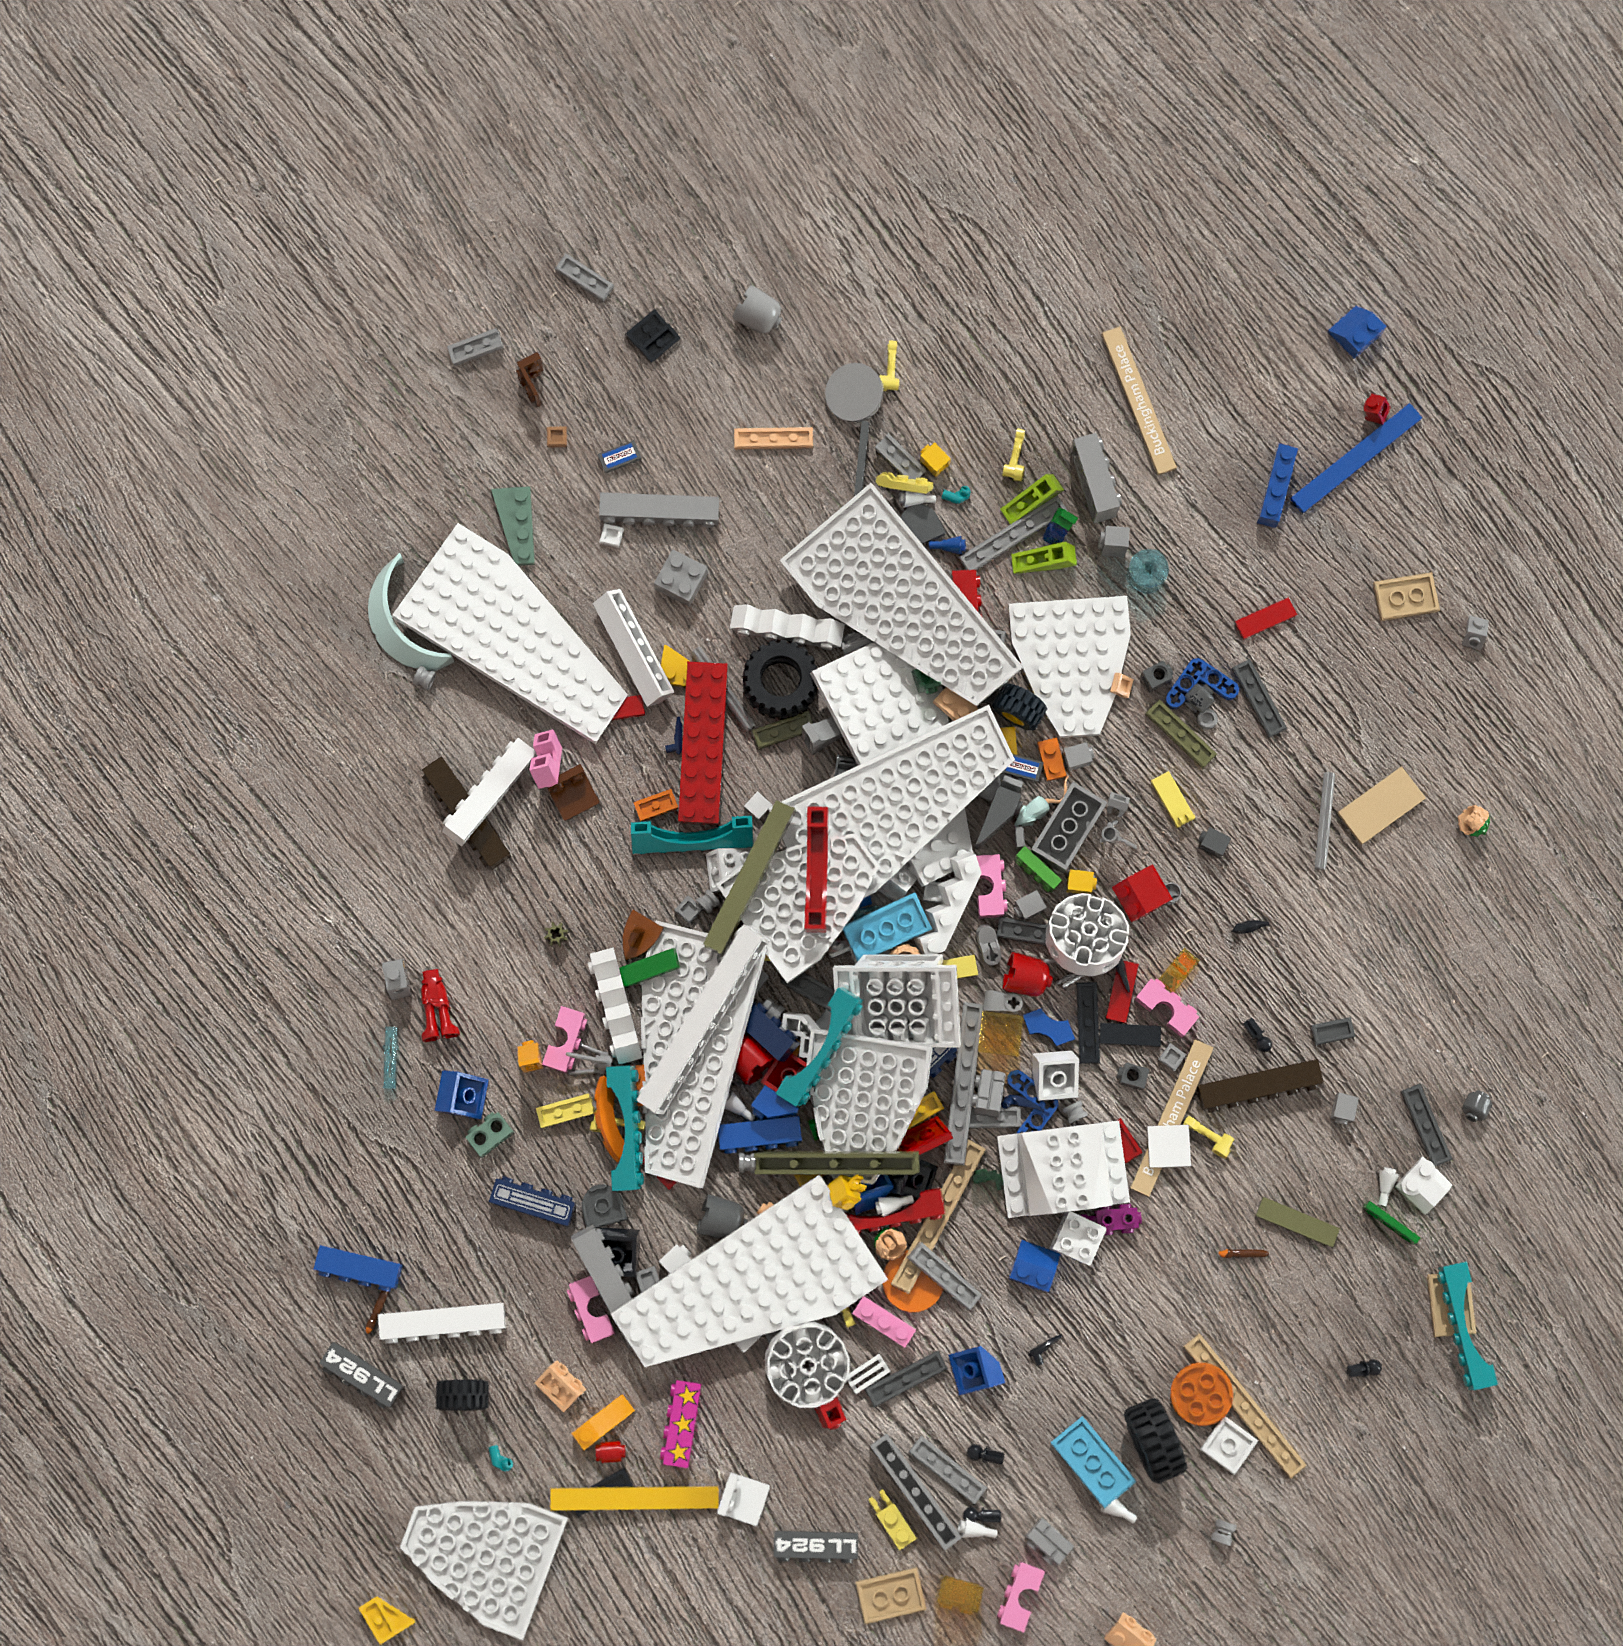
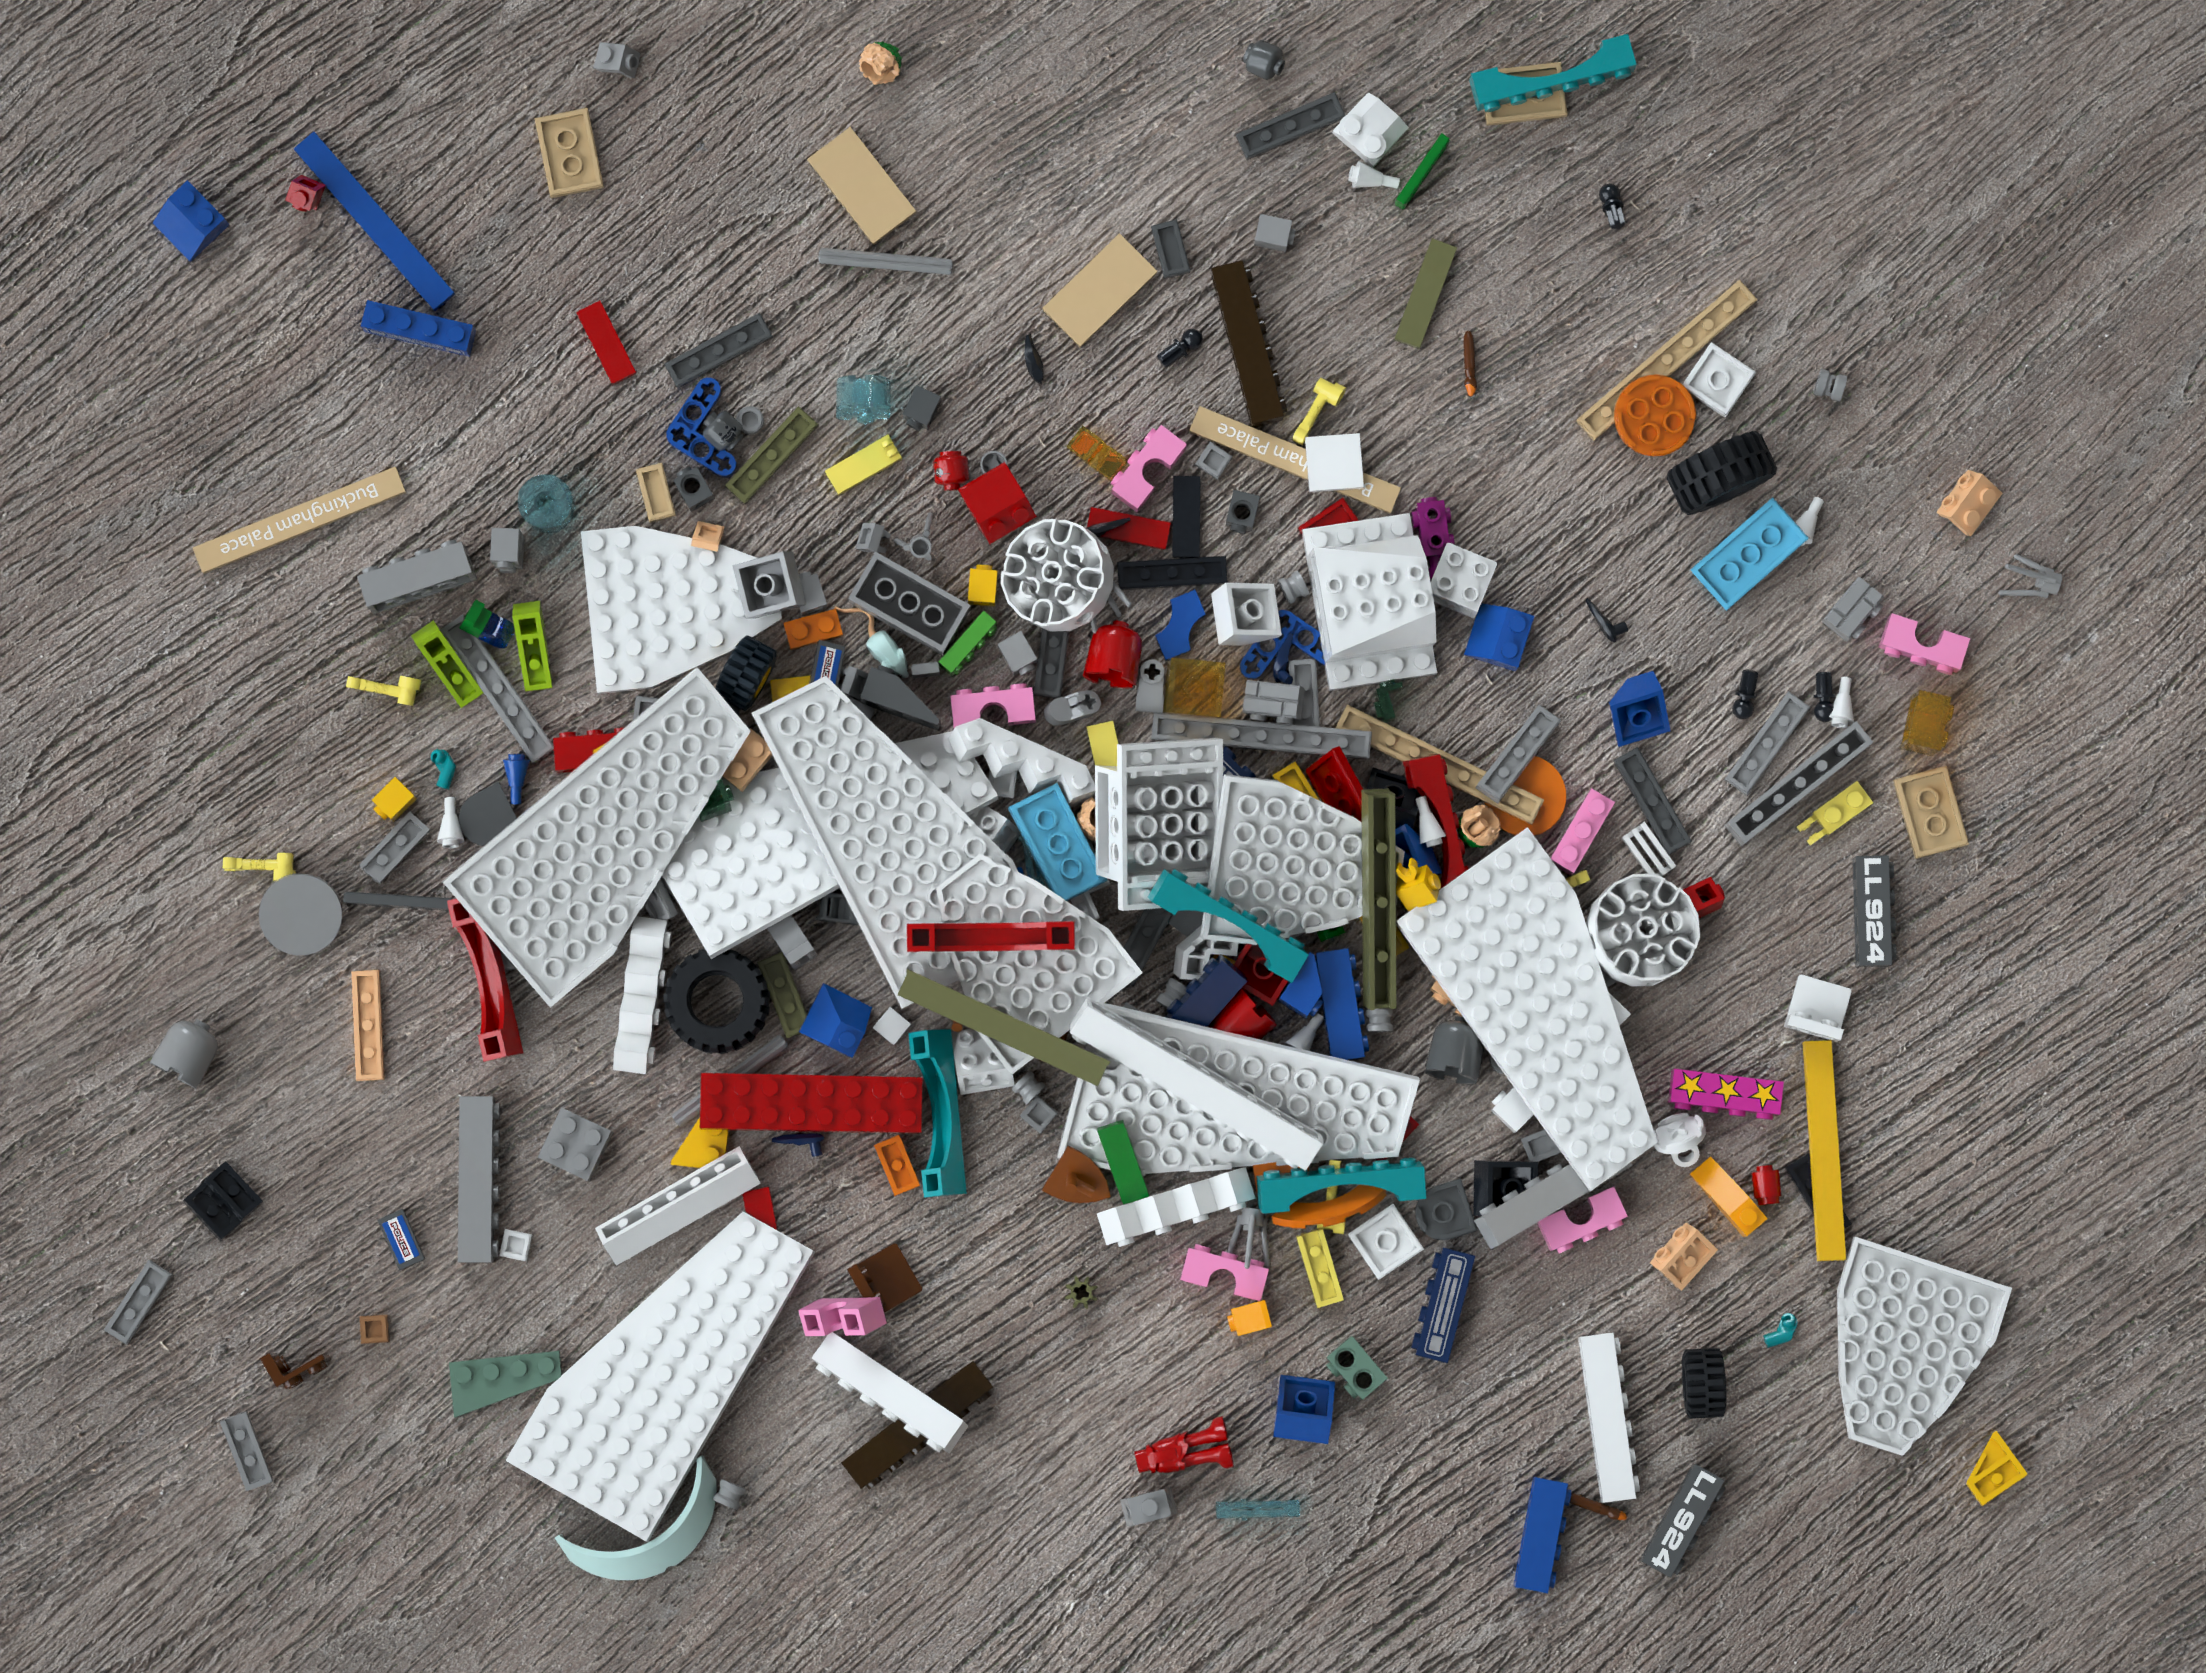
camera: 90 degrees left, 5 degrees up
(582, 1161) = (1385, 1241): none -> white tile
(651, 1386) = (1678, 1135): none -> white tile
(763, 765) = (836, 1020): none -> blue slope
(766, 526) = (499, 1027): none -> red arch
(903, 482) = (431, 841): light yellow hinge -> none
(1084, 724) = (769, 584): none -> light grey brick
(1154, 650) = (655, 492): none -> tan tile
(1167, 862) = (951, 470): none -> red head
(1221, 798) = (863, 398): none -> clear light blue brick
(1301, 977) = (1099, 290): none -> tan tile

